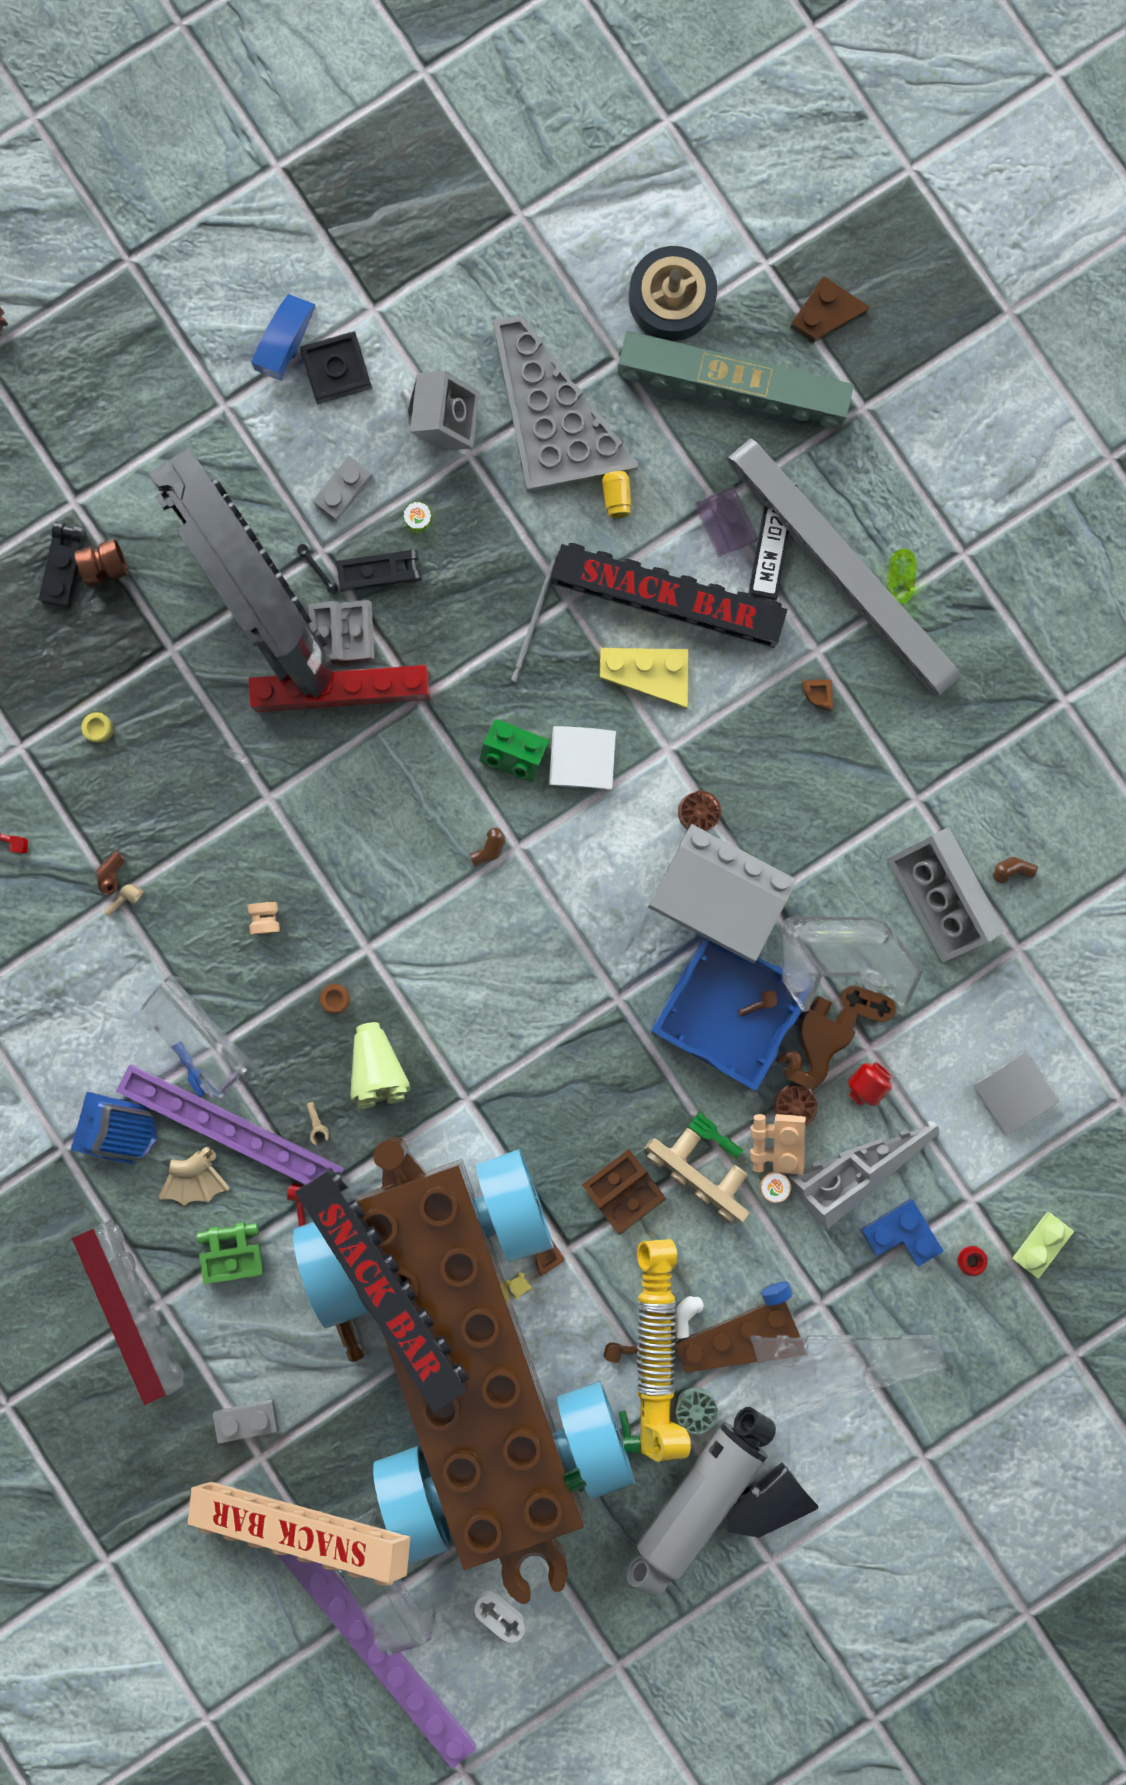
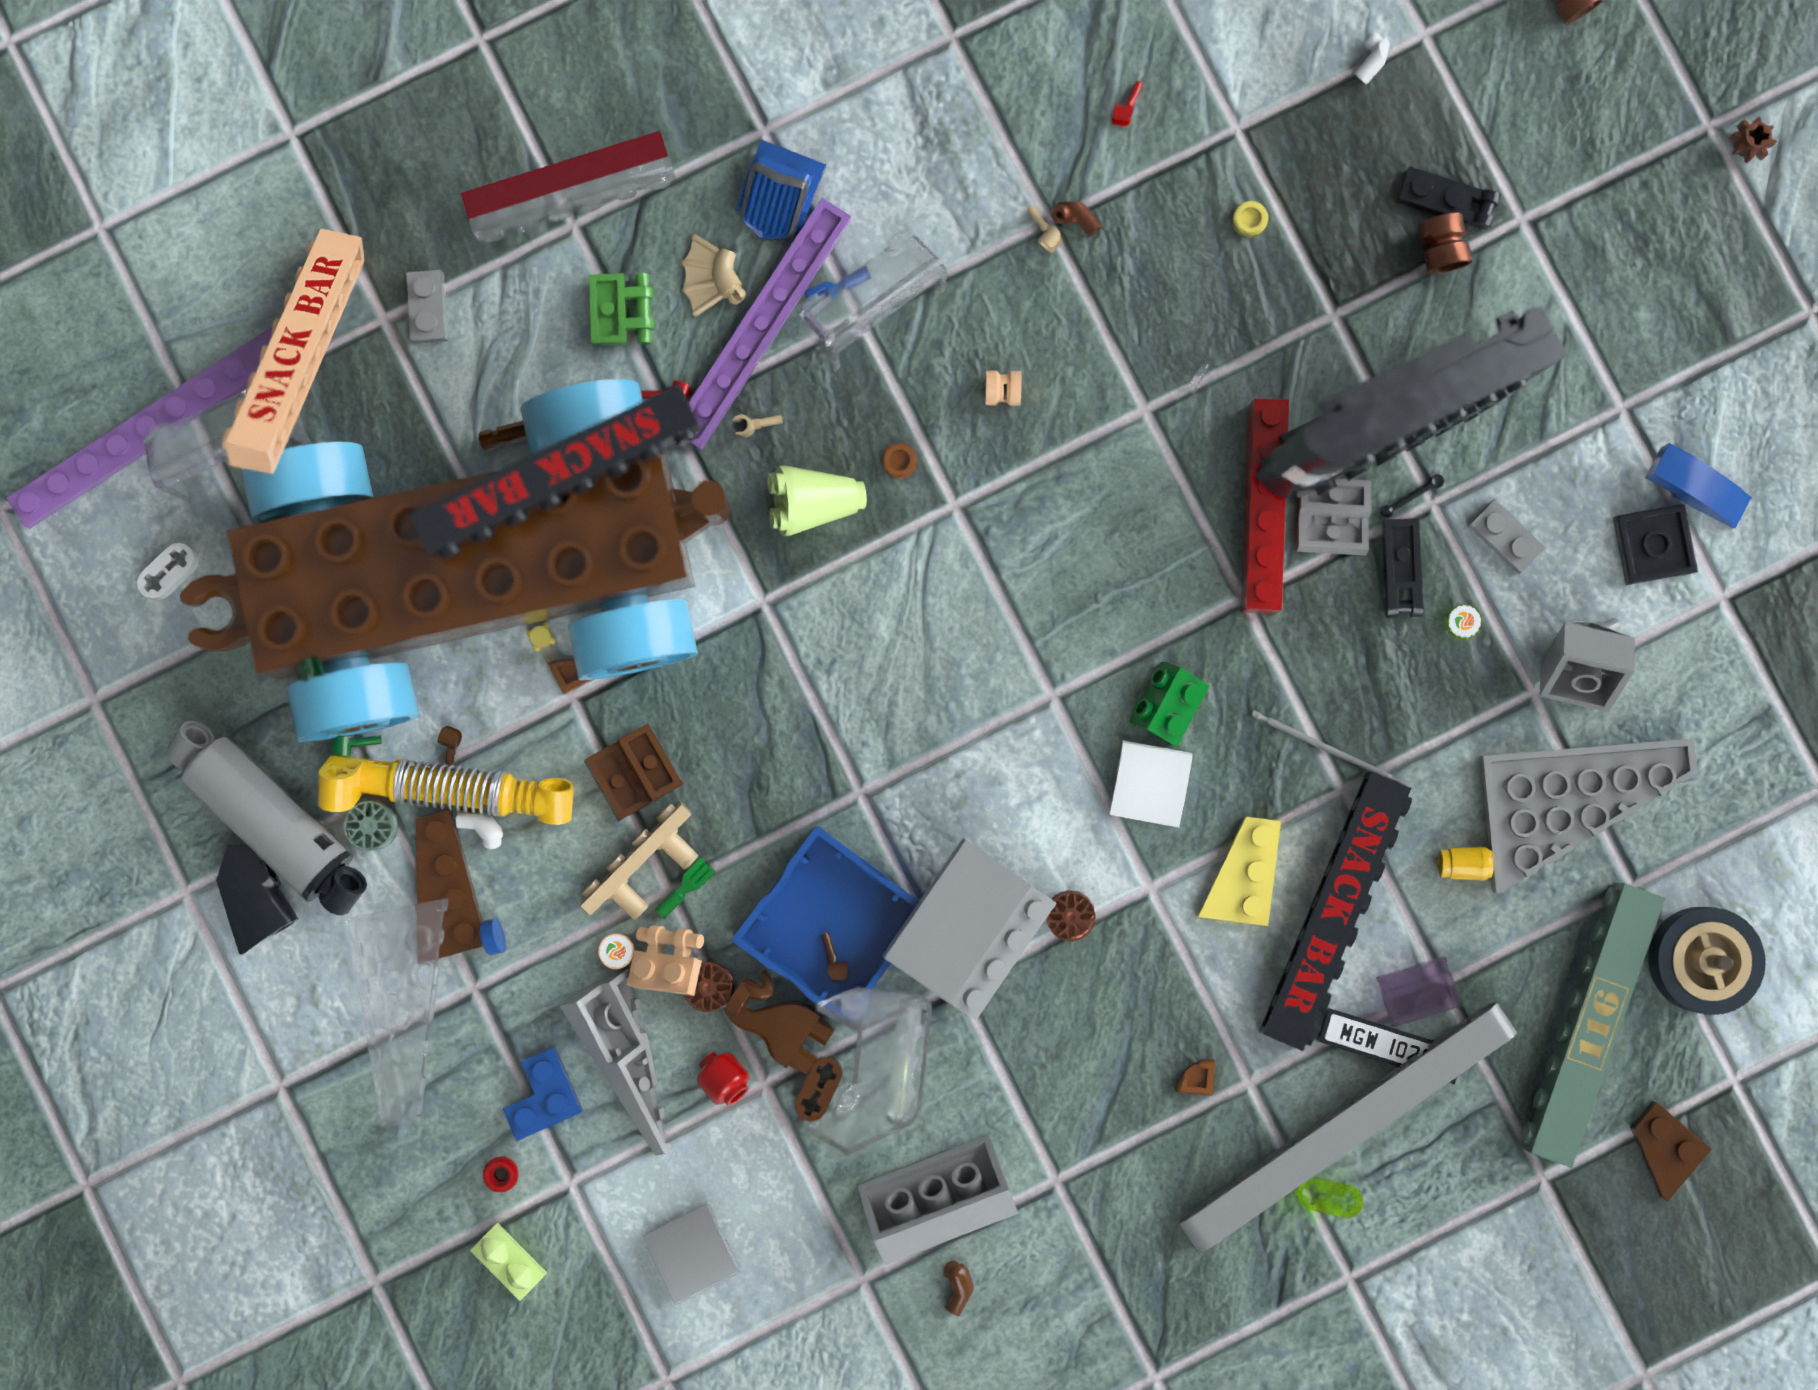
camera: 105 degrees right, 0 degrees up
(492, 849) = (1053, 664): reddish brown arm -> none

